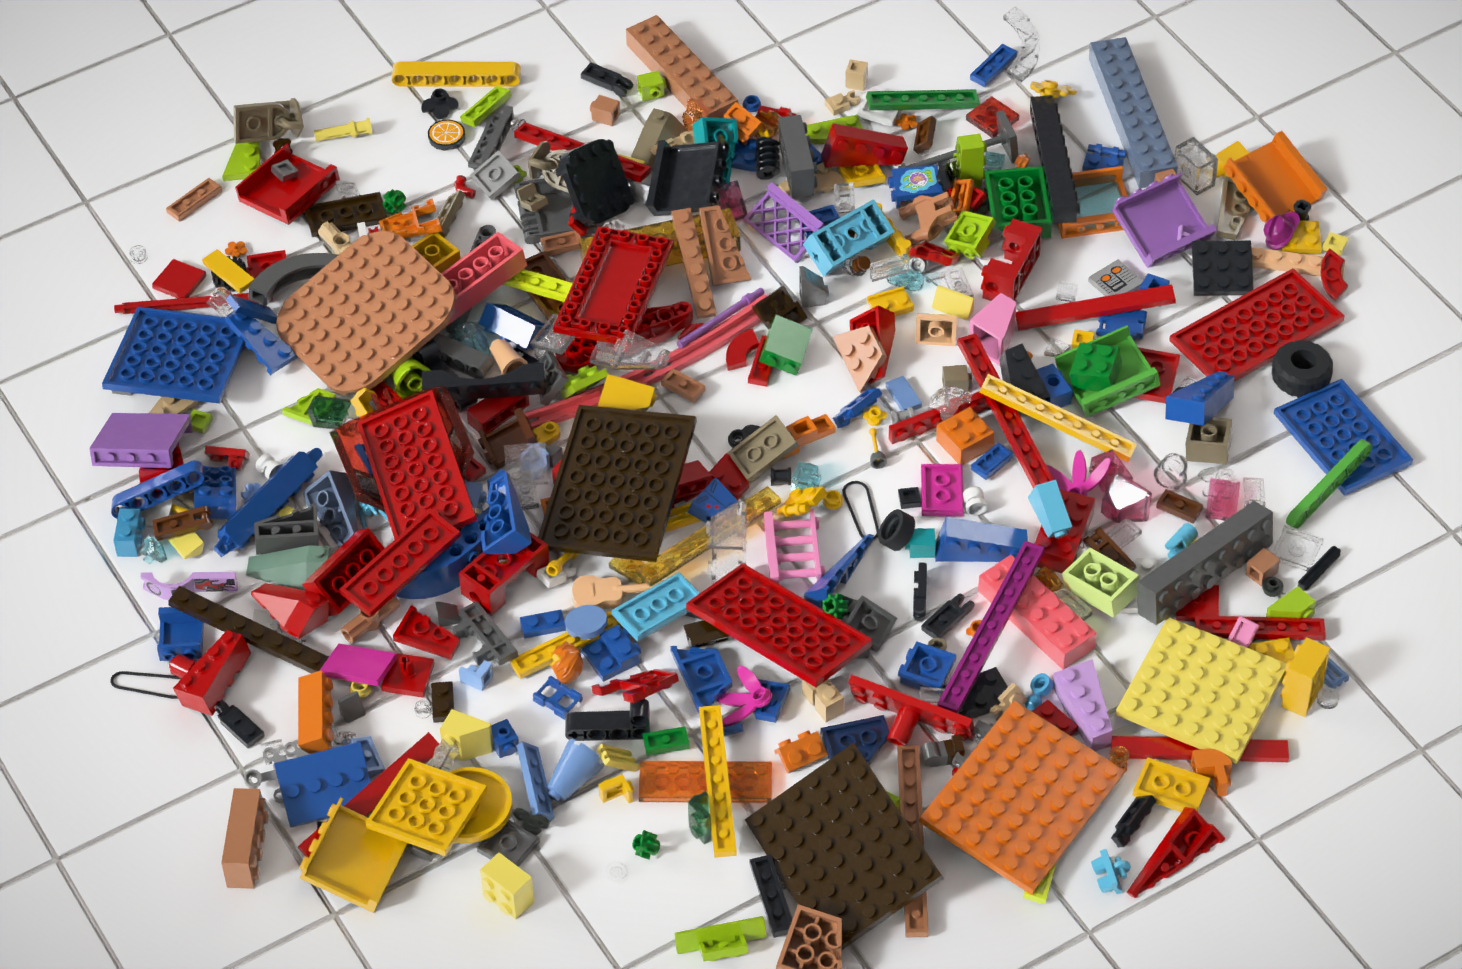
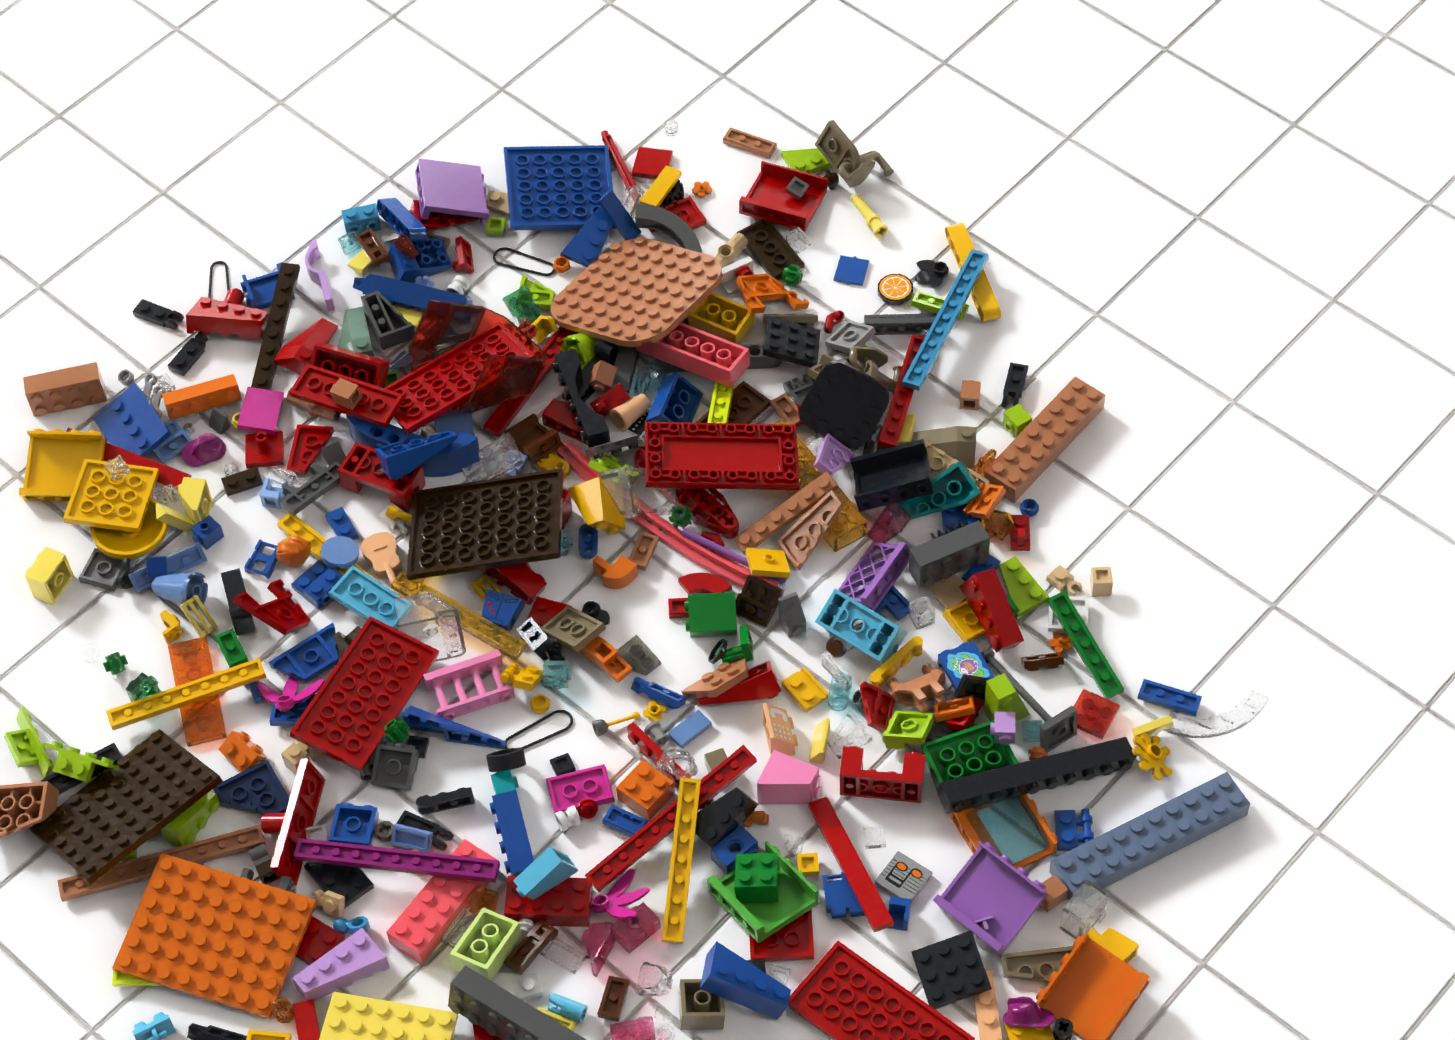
camera: 75 degrees right, 5 degrees up
(164, 745) = (157, 314): none -> black hinge
(208, 482) = (406, 246): none -> clear red cone
(252, 404) = (519, 268): none -> black piece
(281, 378) = (561, 264): none -> orange plate
(384, 728) = (203, 450): none -> magenta piece
(395, 790) = (117, 468): none -> clear tile
(404, 162) = (851, 270): none -> blue piece
(408, 553) = (346, 393): none -> nougat brick
(460, 363) = (602, 376): none -> nougat brick
(460, 657) = (279, 476): none -> clear brick
(477, 761) = (173, 518): none -> light yellow slope
(484, 215) = (791, 342): none -> black plate
(487, 363) = (612, 398): none -> red hinge
(516, 97) = (945, 320): none -> dark azure plate
(537, 783) = (156, 566): none -> blue tile
(642, 215) = (832, 456): none -> lavender wing
(661, 340) = (680, 516): none -> green gear
(703, 406) = (616, 575): none -> orange brick
(741, 292) = (767, 563): none -> yellow plate
(763, 476) = (535, 637): none -> hinge
(772, 890) = (76, 765): none -> lime bracket
(812, 407) = (639, 656): none -> clear smoke wing
(833, 330) = (745, 649): none -> green piece
(957, 624) = (411, 838): none -> medium blue tile
(968, 482) = (587, 808): none -> red plate
(1002, 161) = (1003, 728): none -> lavender brick
(1024, 80) = (1154, 726): none -> light yellow tile

